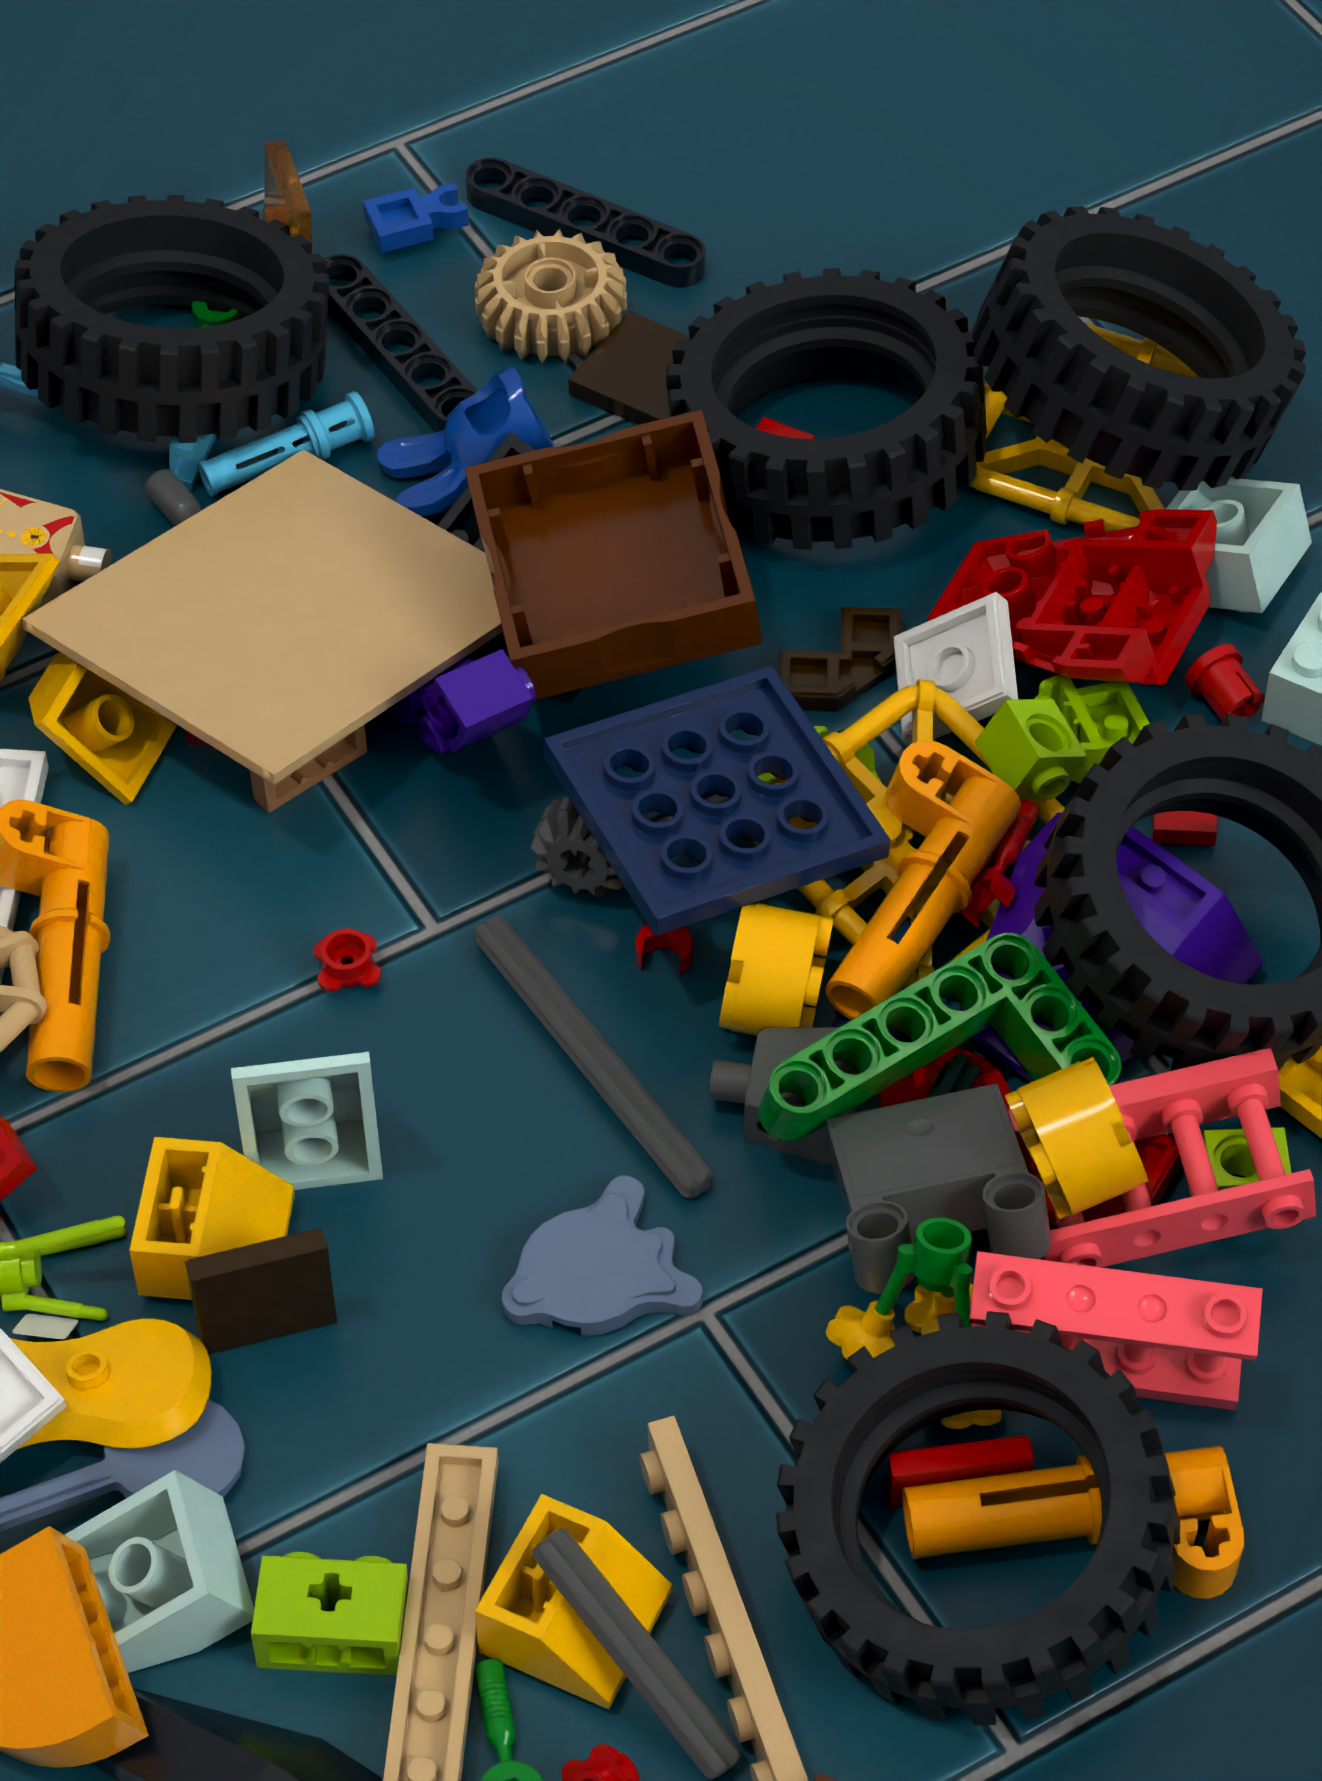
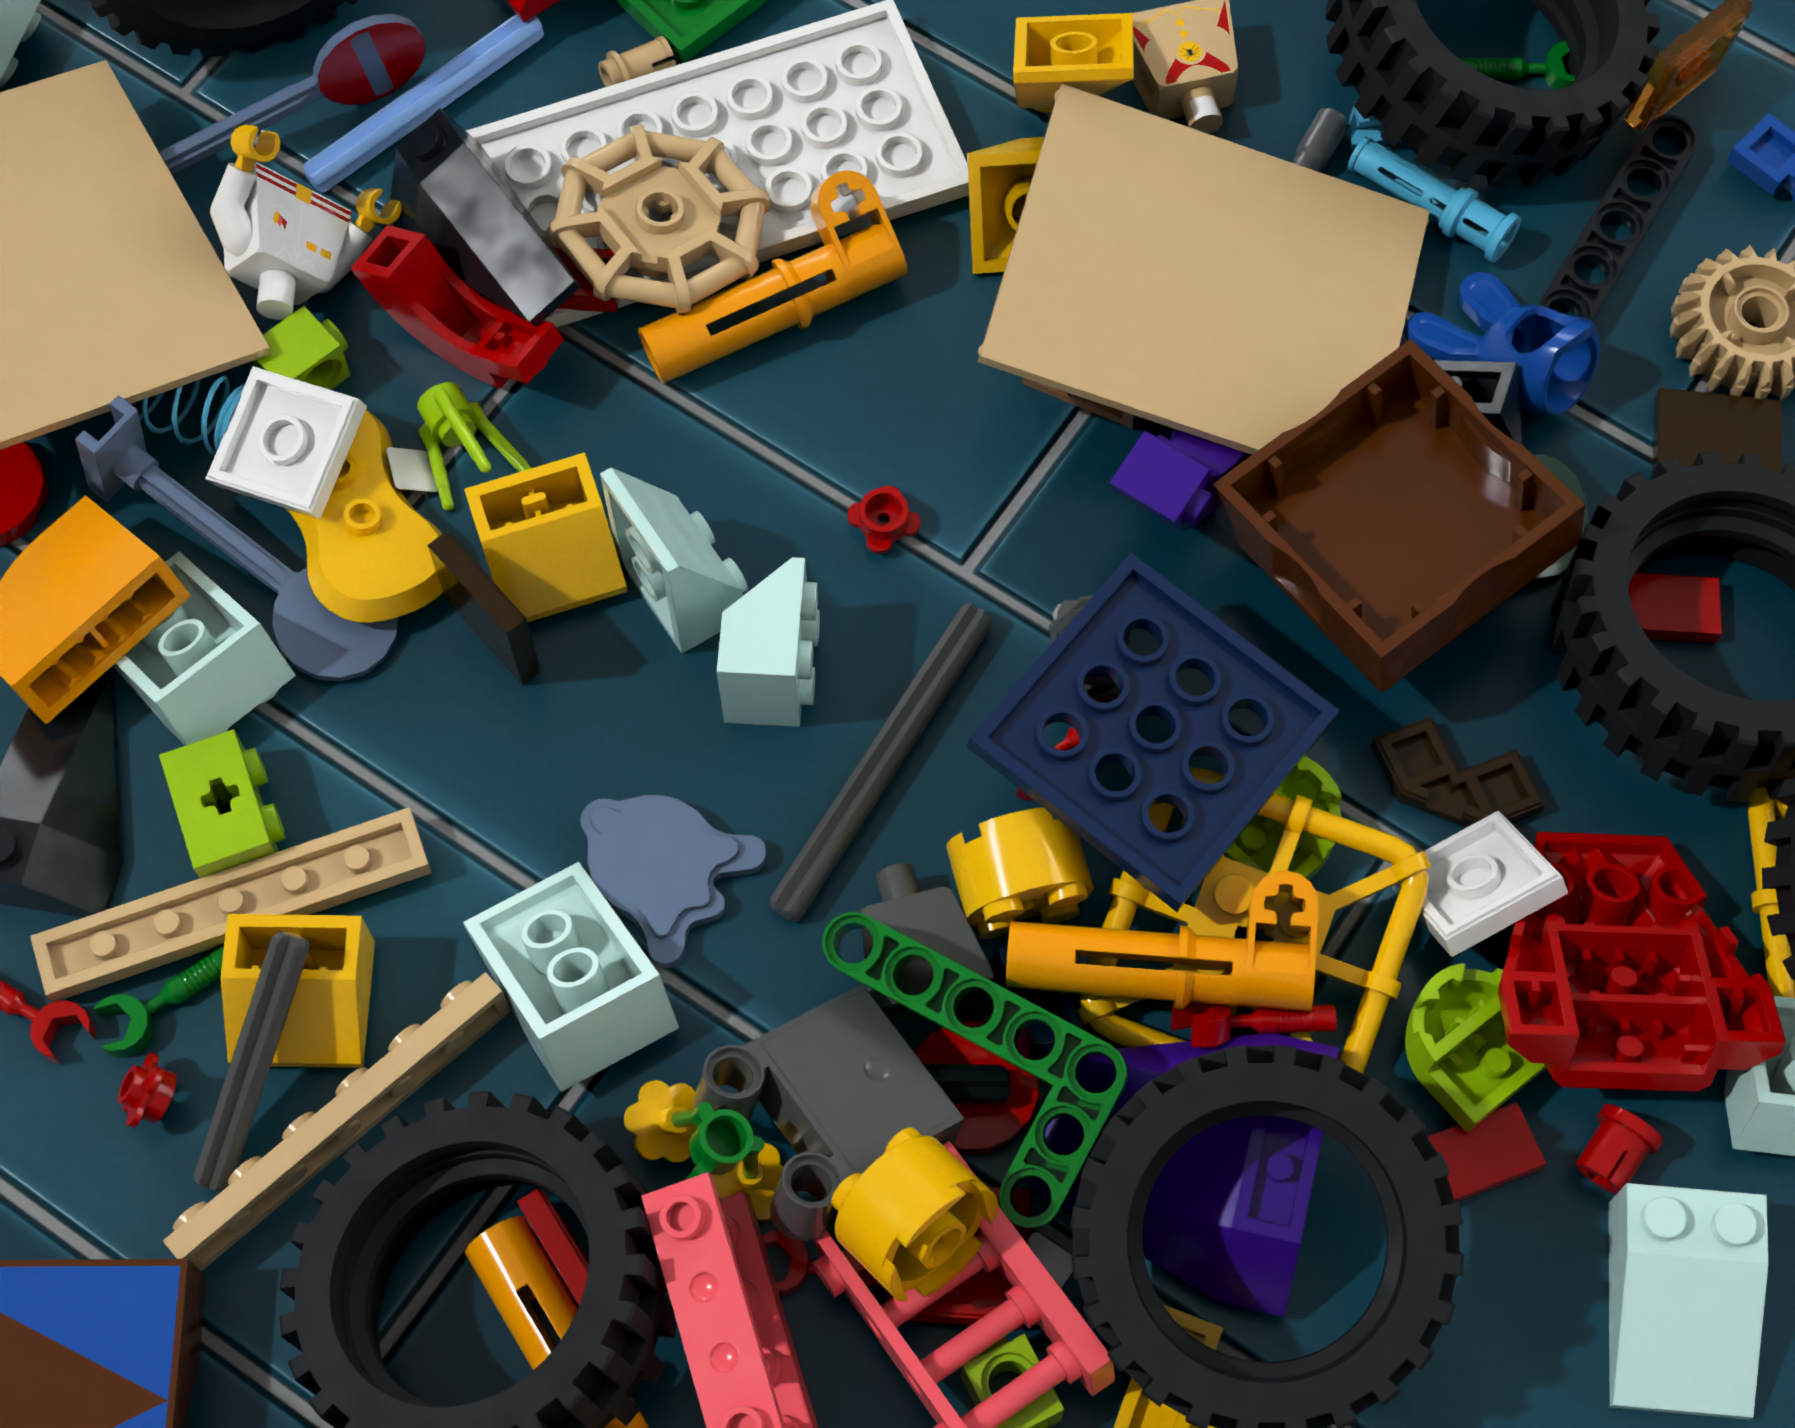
camera: 65 degrees right, 15 degrees up
(451, 1076) = (768, 649): none -> light aqua slope
(689, 1354) = (572, 975): none -> light aqua slope
(1031, 748) = (1411, 991): lime brick -> none

